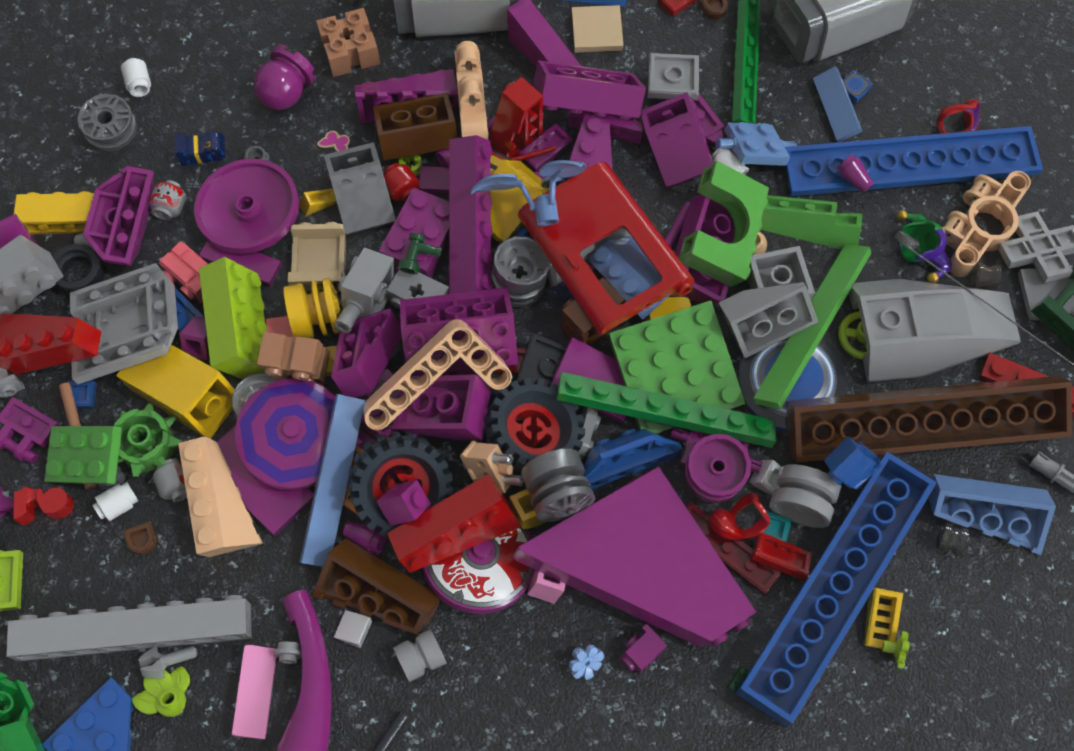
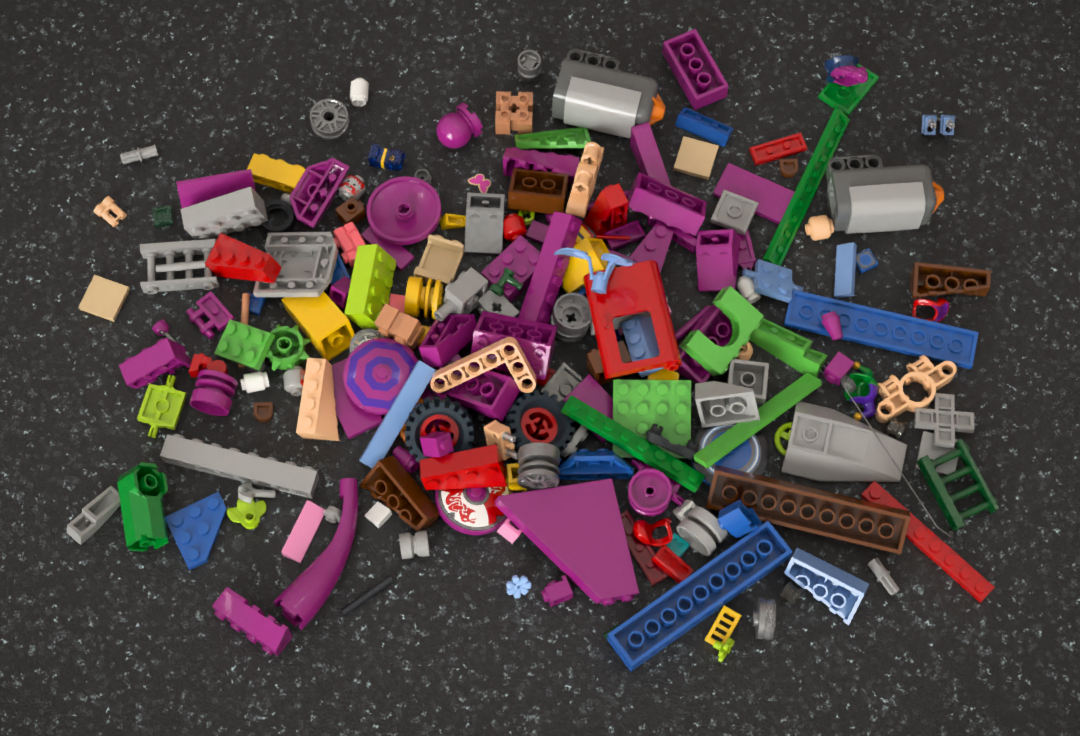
camera: 20 degrees right, 0 degrees up
(59, 537) = (213, 393): none -> magenta wheel
(175, 228) = (351, 211): none -> reddish brown brick
(410, 58) = (561, 138): none -> bright green wing
(693, 391) = (654, 436): none -> black piece
(713, 46) = (772, 198): none -> magenta tile
(784, 62) = (819, 227): none -> light nougat head
(883, 226) = (838, 368): none -> magenta brick
(938, 587) = (765, 619): none -> piece
(957, 77) = (943, 279): none -> reddish brown wedge

